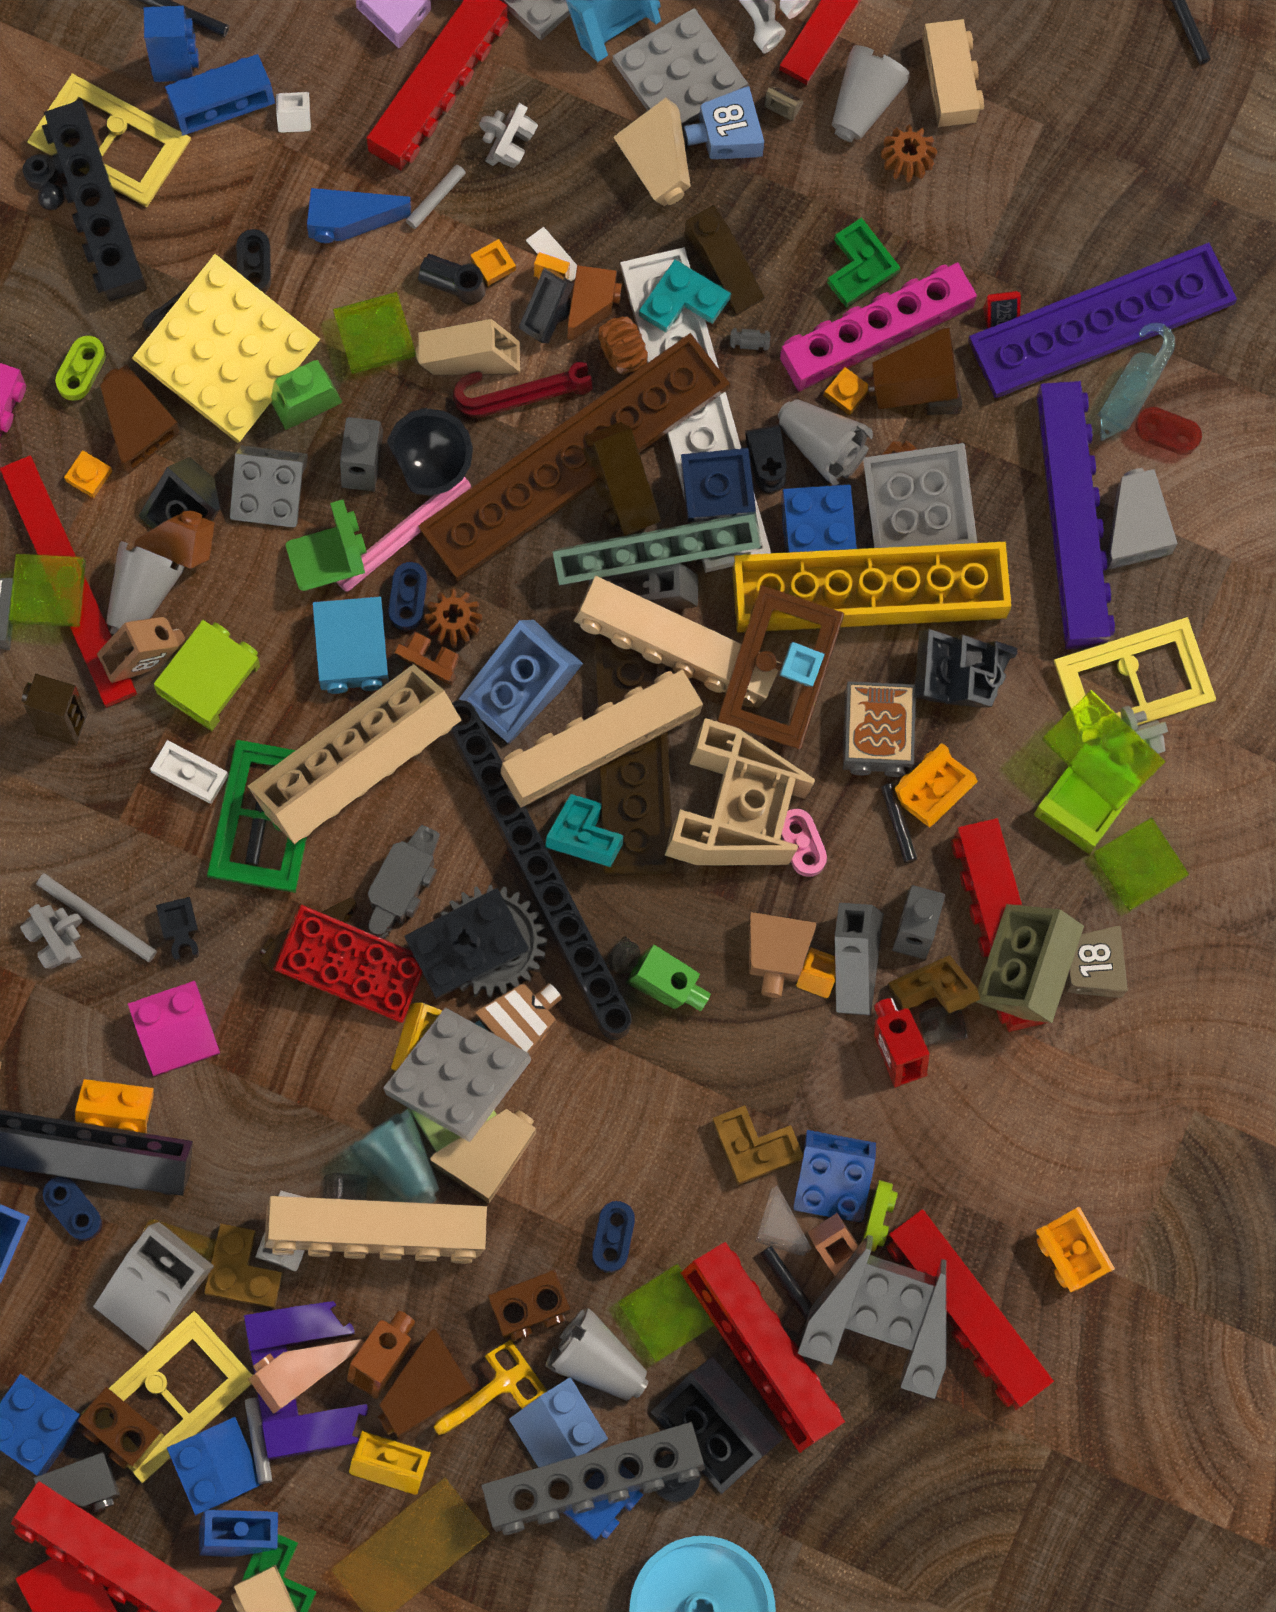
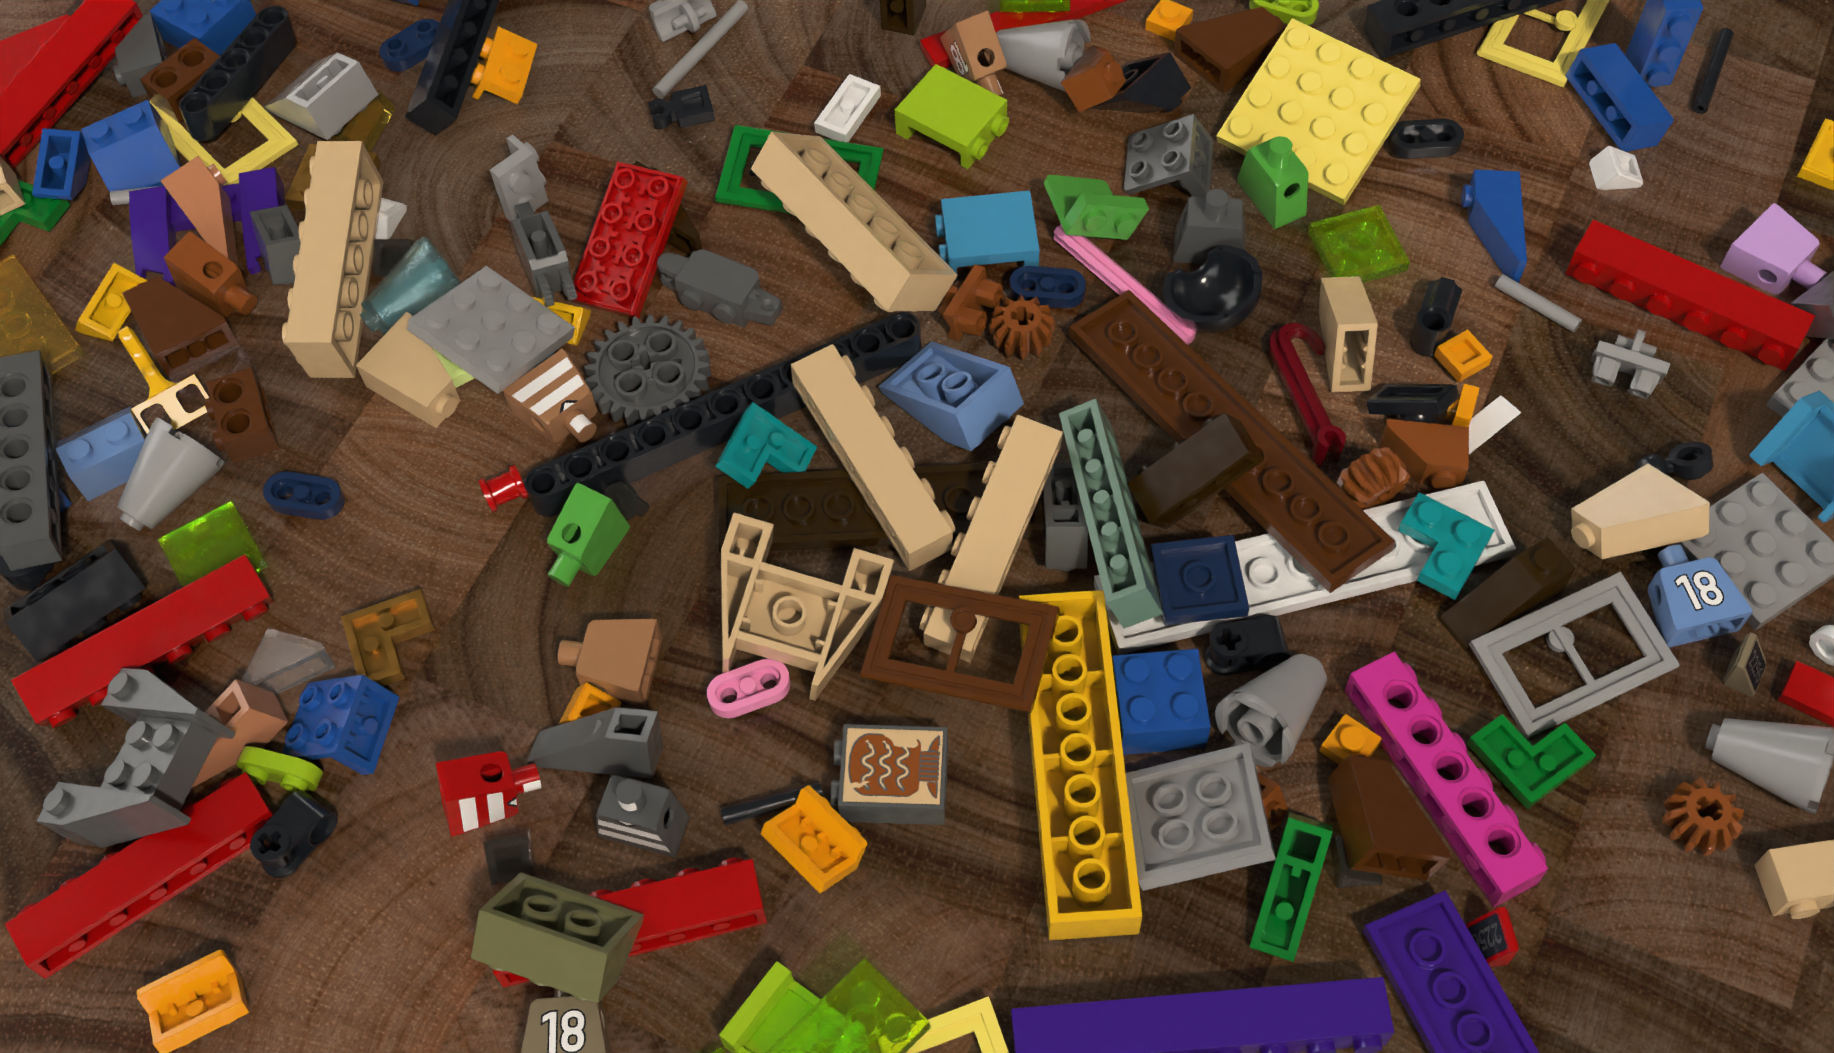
camera: 100 degrees right, 15 degrees down
(102, 1363) = (238, 73): none -> black beam
(174, 1028) = (579, 106): dark pink slope -> none
(284, 1065) = (519, 178): none -> light grey bracket
(337, 1296) = (277, 241): none -> dark grey slope
(362, 1043) = (542, 254): none -> dark grey hinge
(467, 943) = (638, 336): black plate -> none
(603, 133) = (1685, 461): none -> black plate
(610, 1059) = (503, 488): none -> red bush
(747, 233) = (1551, 619): none -> light grey door
(750, 339) = (1405, 630): dark grey piece -> none
(787, 1281) = (219, 679): black piece -> none
(801, 664) = (957, 656): medium azure plate -> none
(927, 1190) = (292, 832): none -> black piece
(940, 980) = (556, 839): pearl gold plate -> none
(943, 426) = (1291, 886): none -> green slope
(960, 669) = (969, 871): black slope -> none

